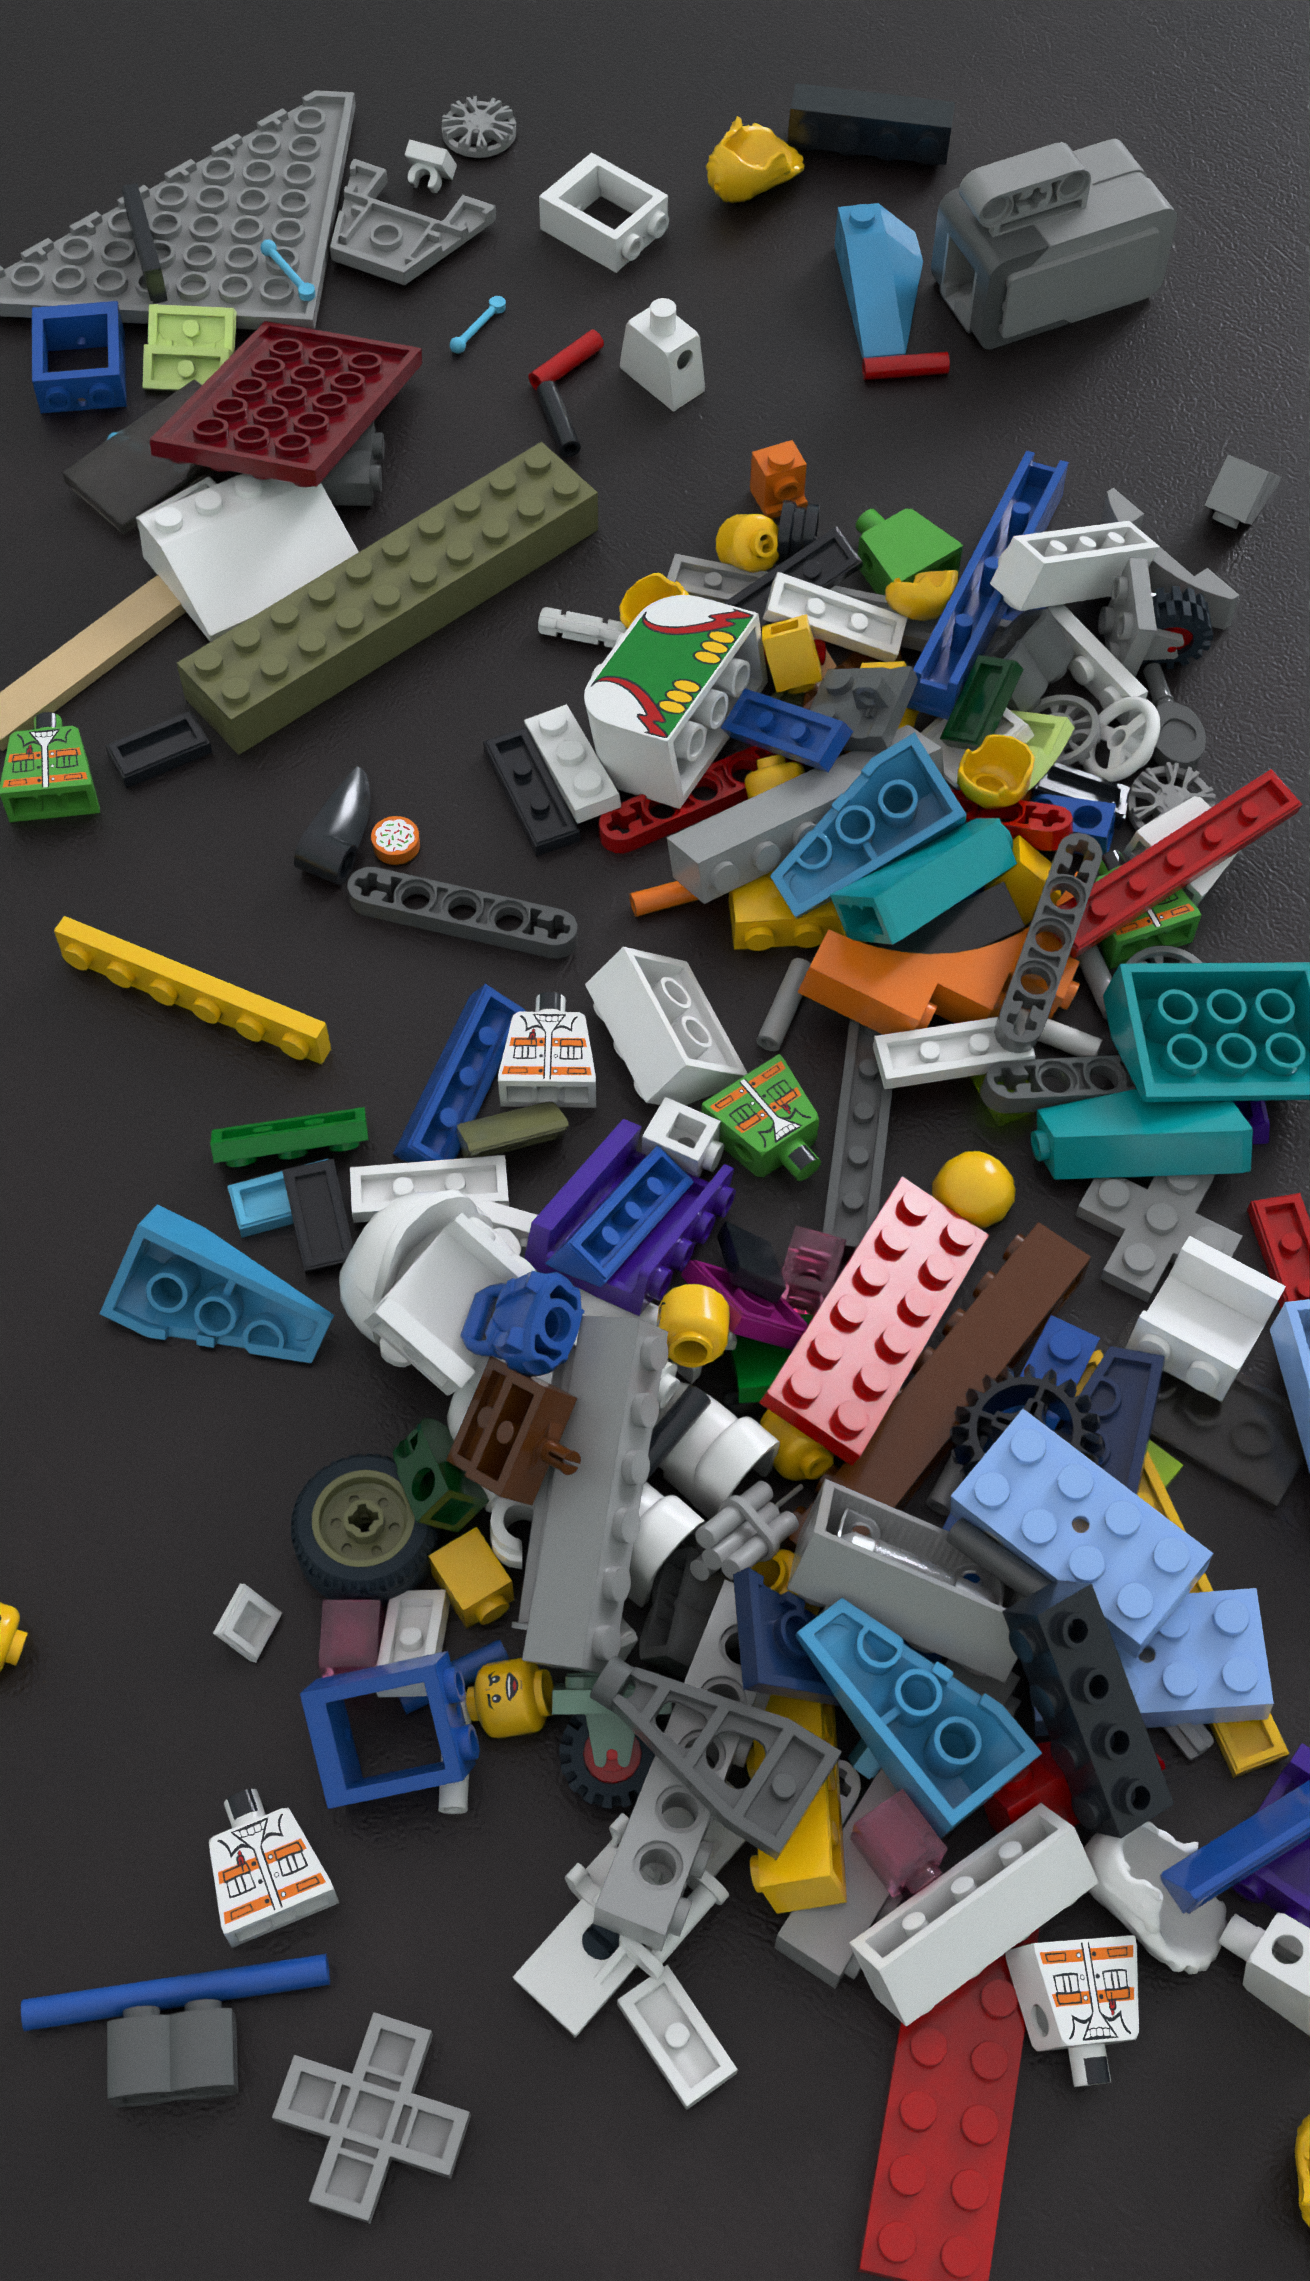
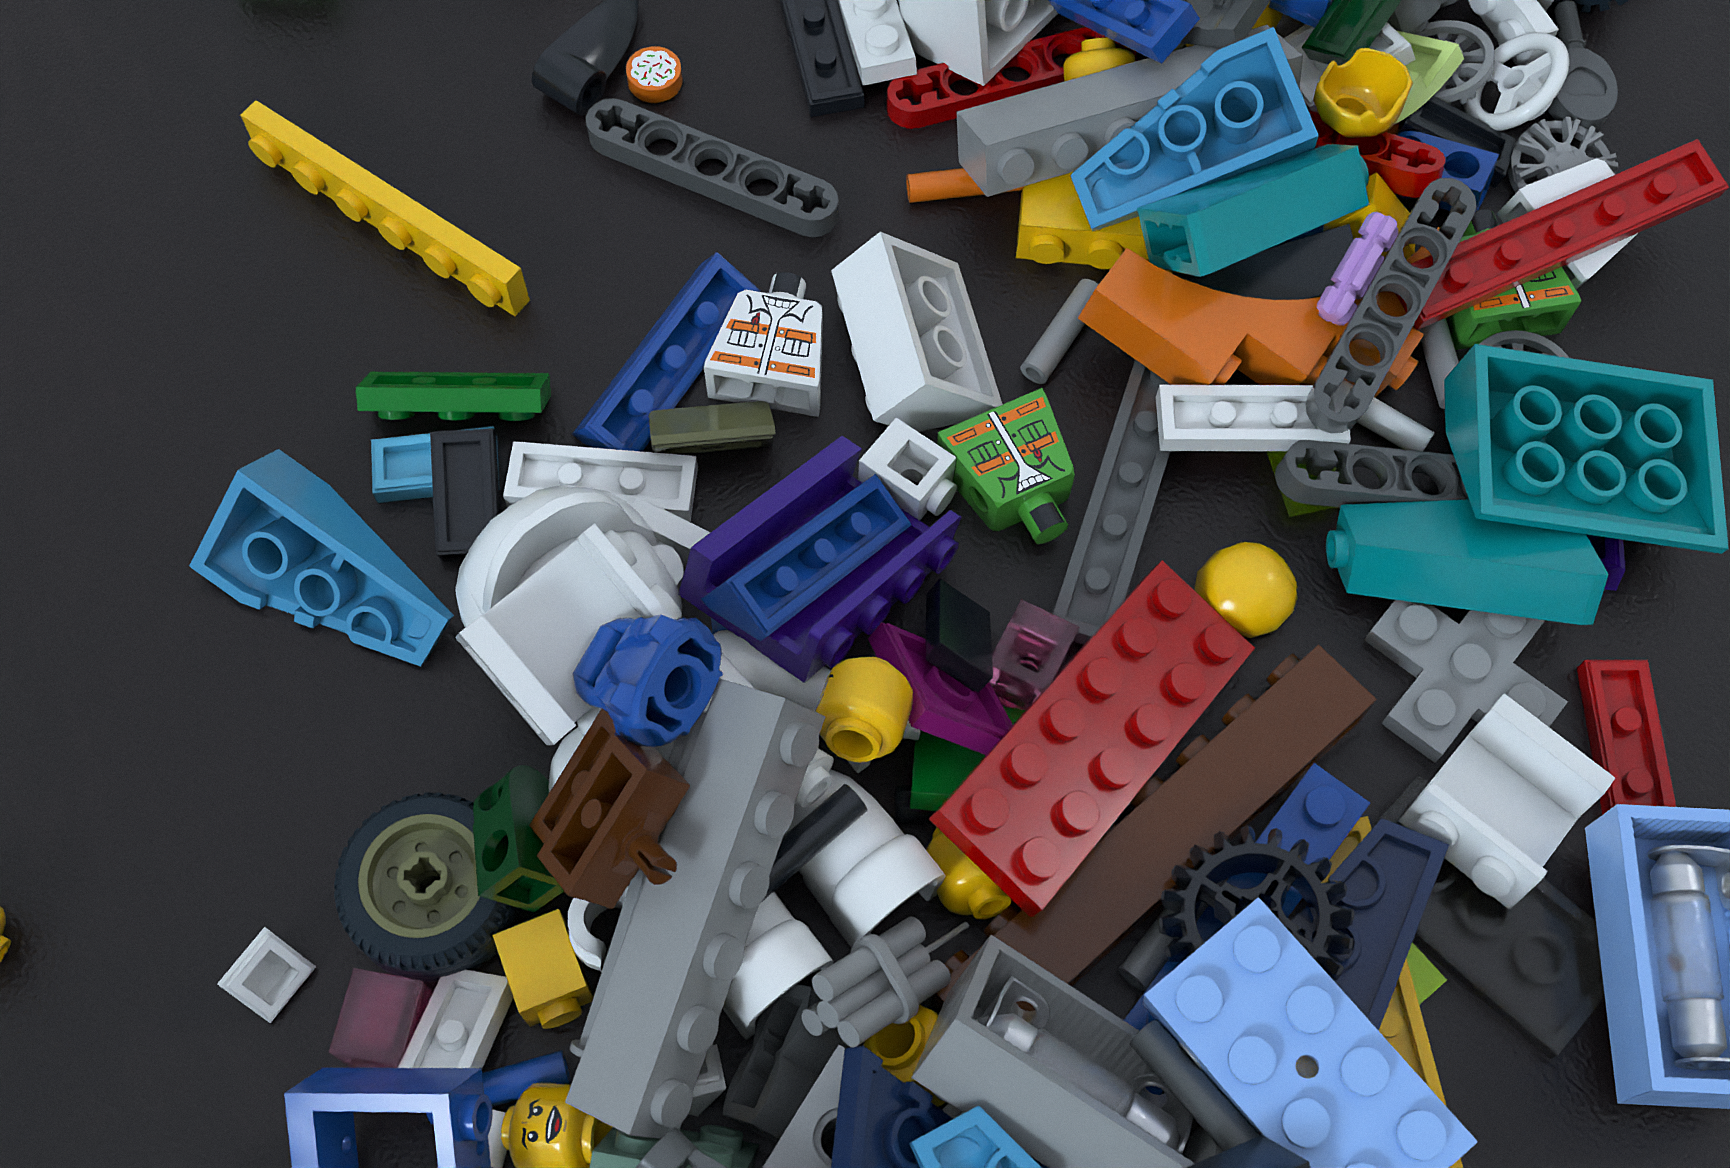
camera: 10 degrees right, 5 degrees up
(1016, 917) = (1357, 268): none -> lavender axle

